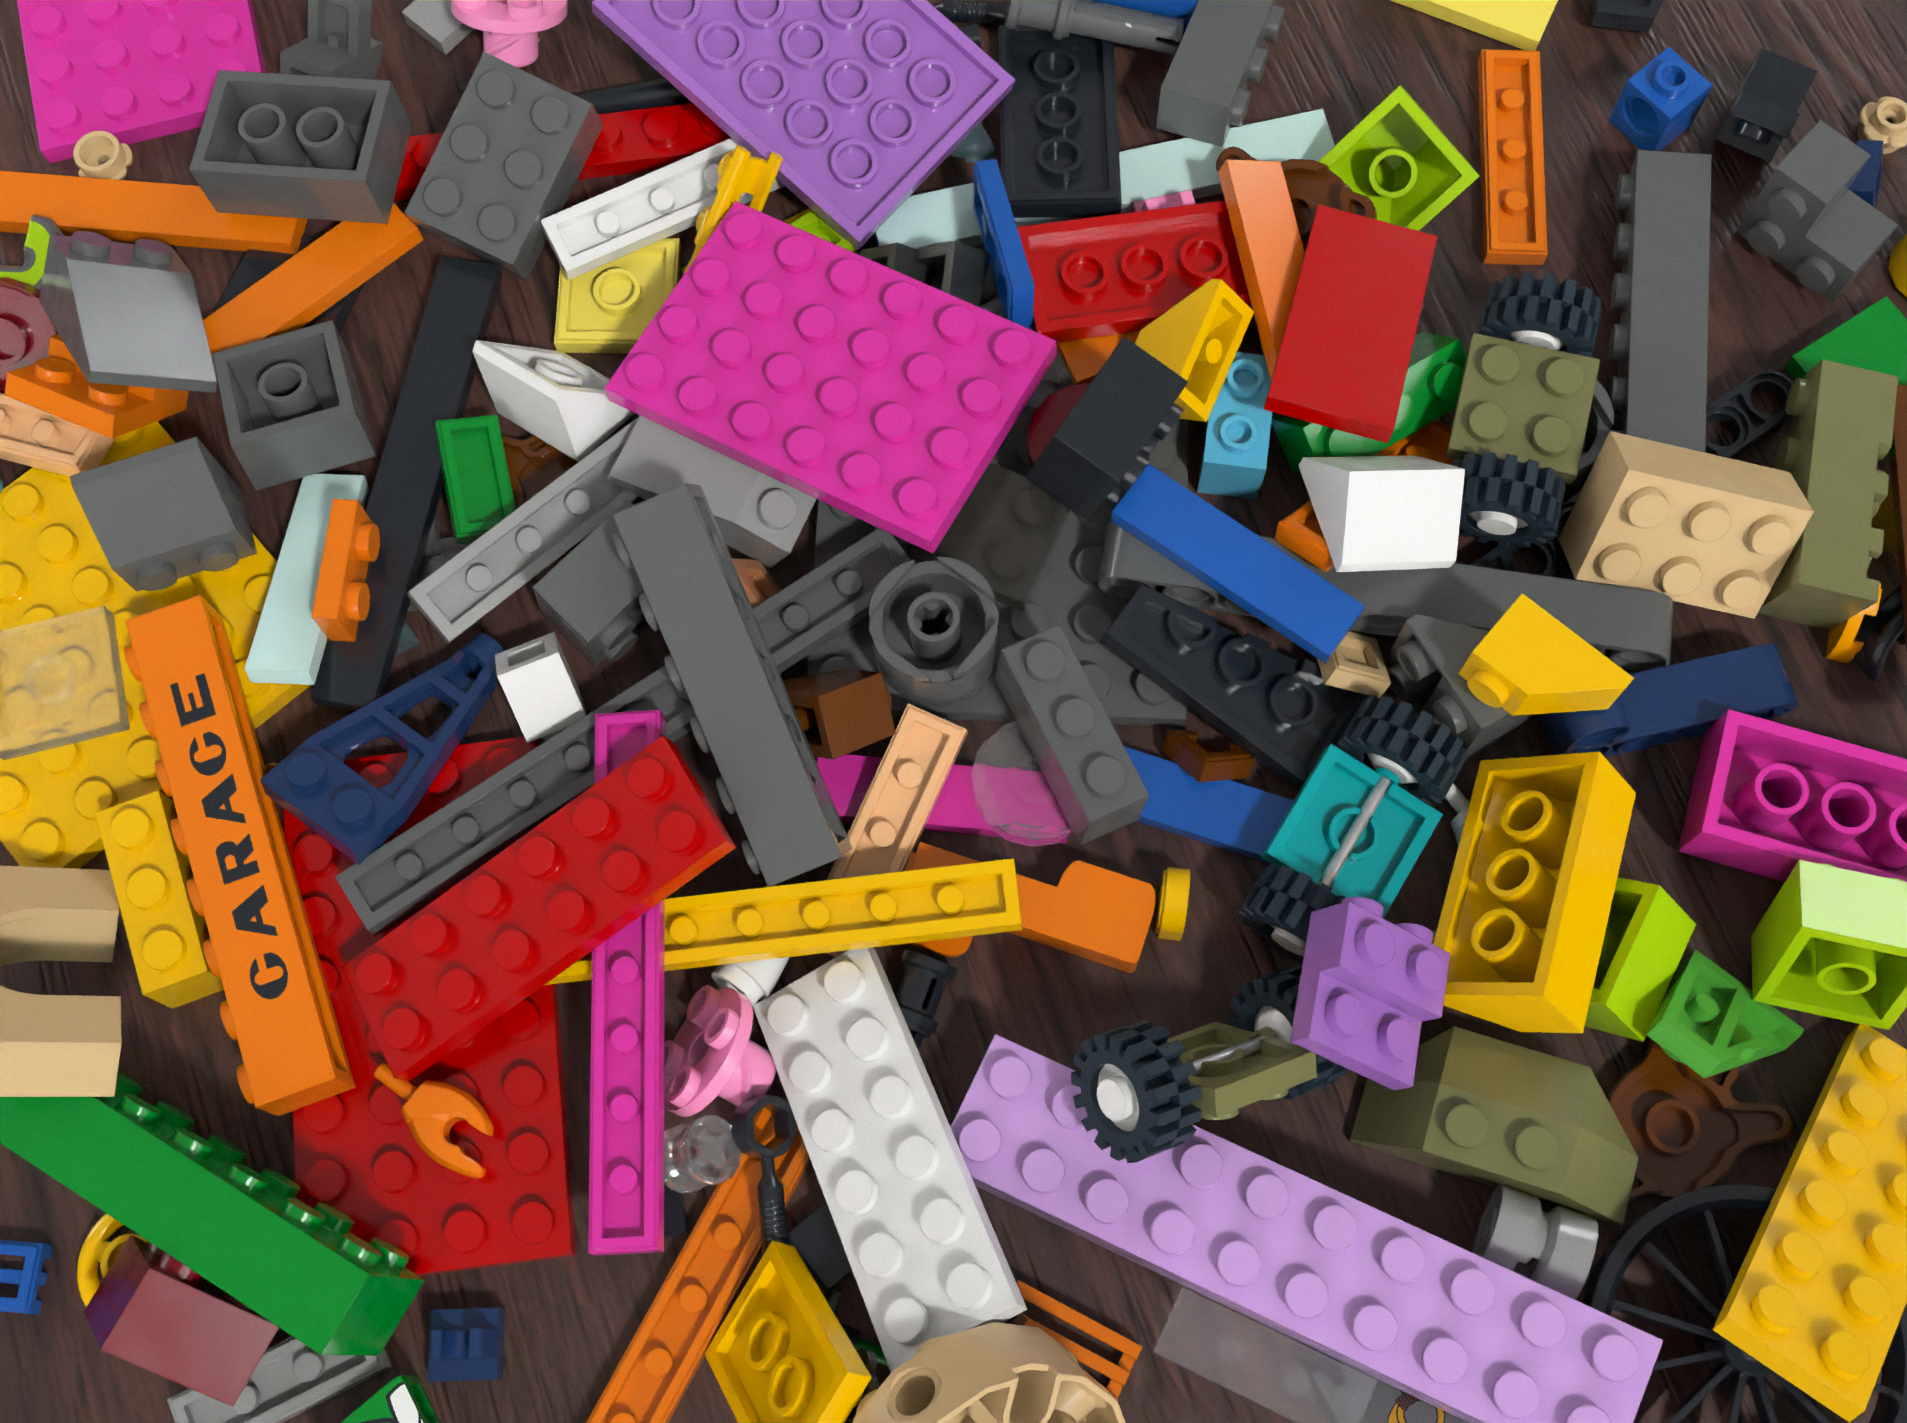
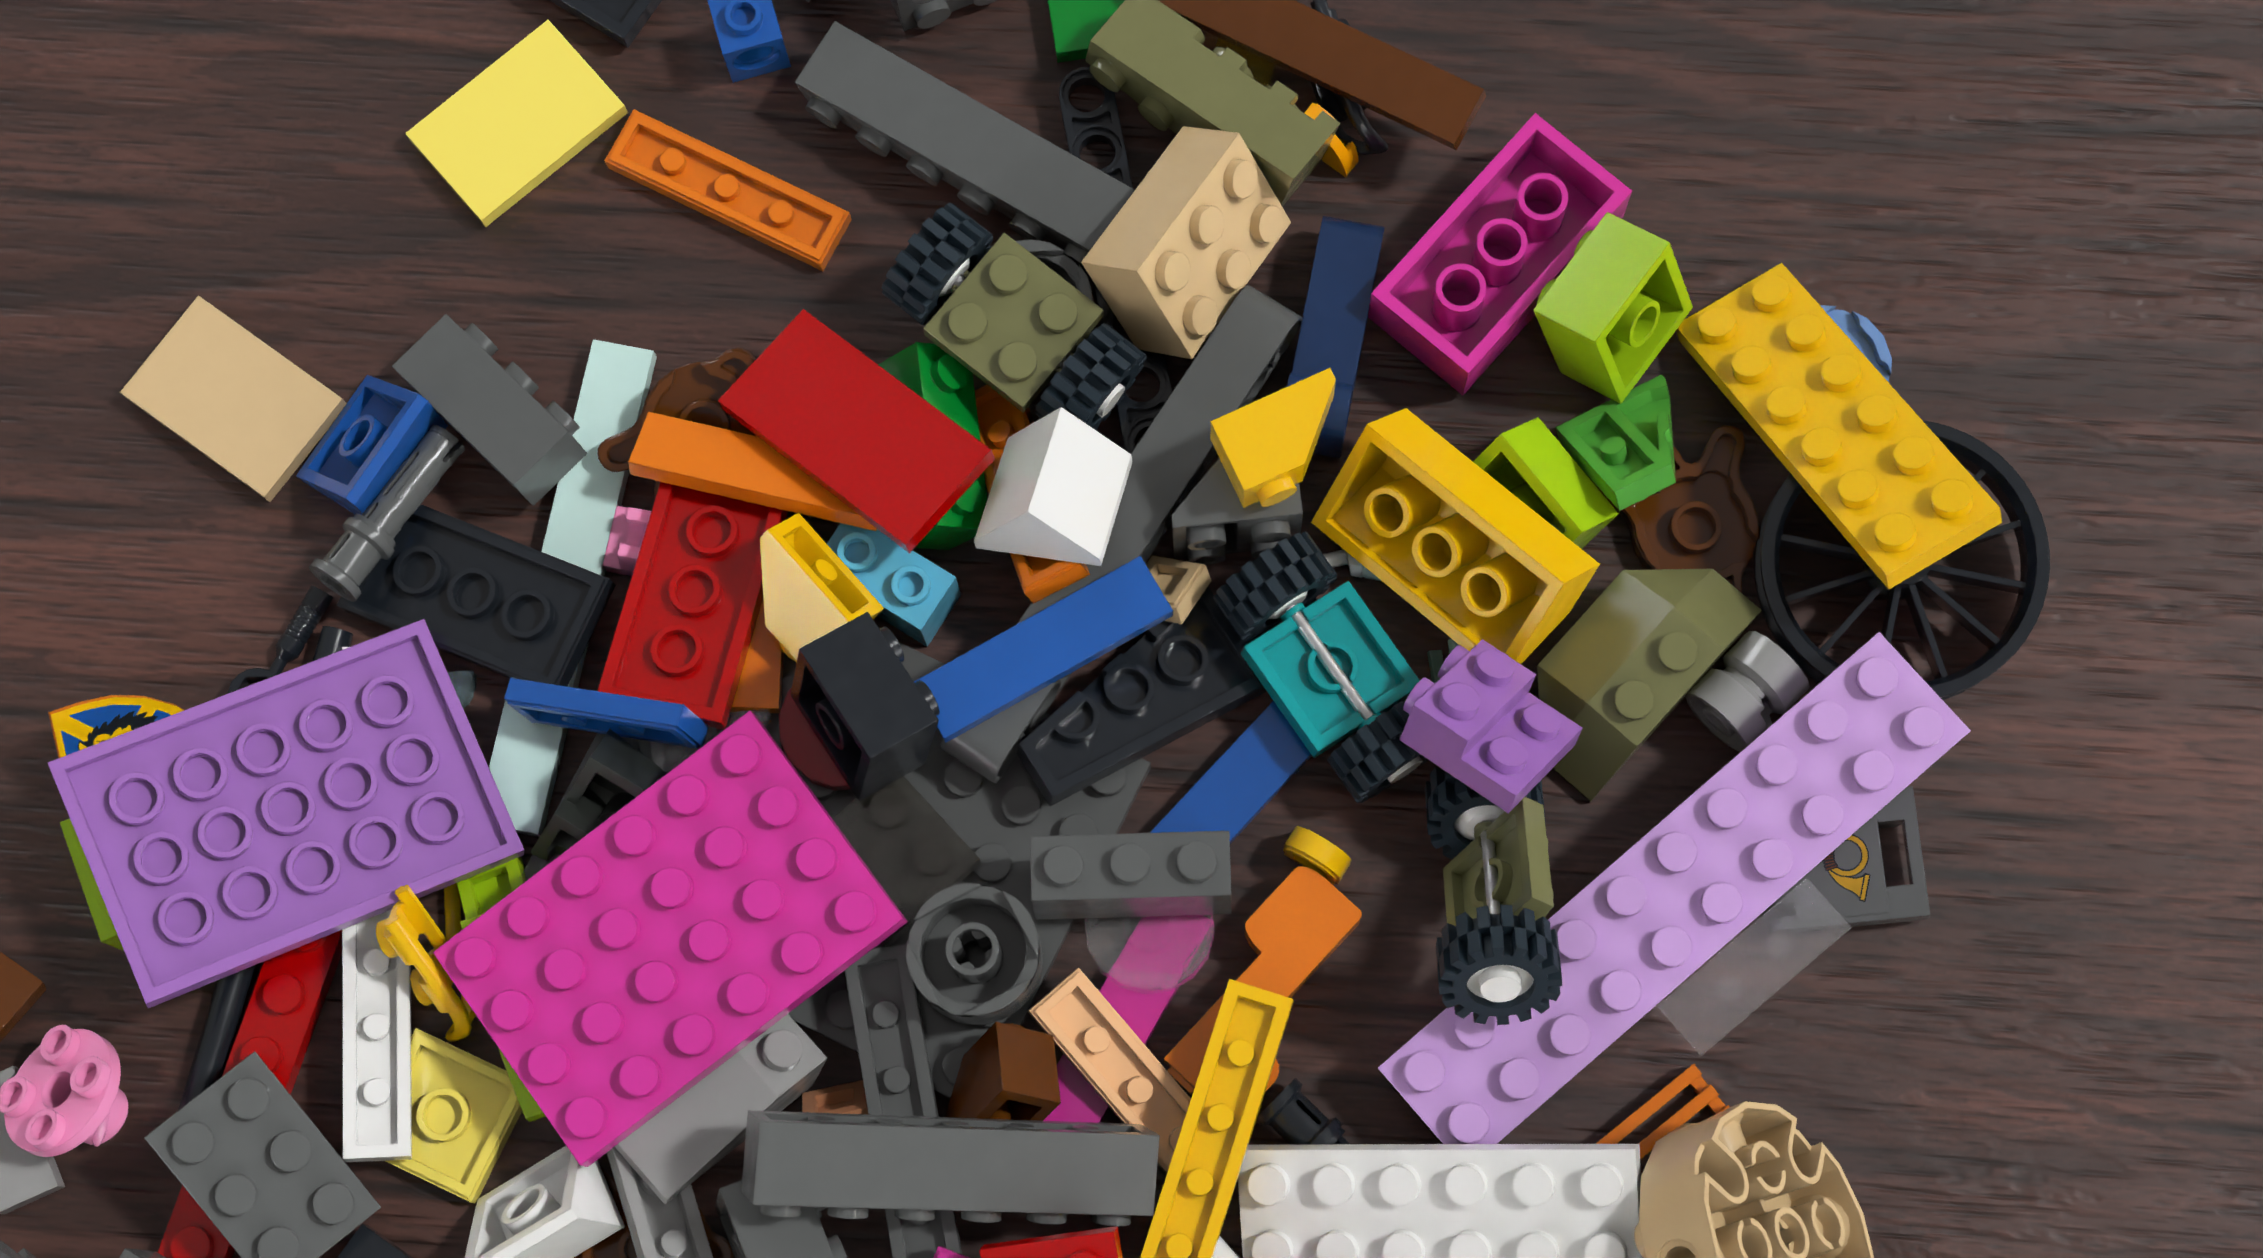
camera: 65 degrees left, 5 degrees up
(1205, 761) = (1198, 764): reddish brown tile -> none
(1401, 163) = (694, 301): lime slope -> none

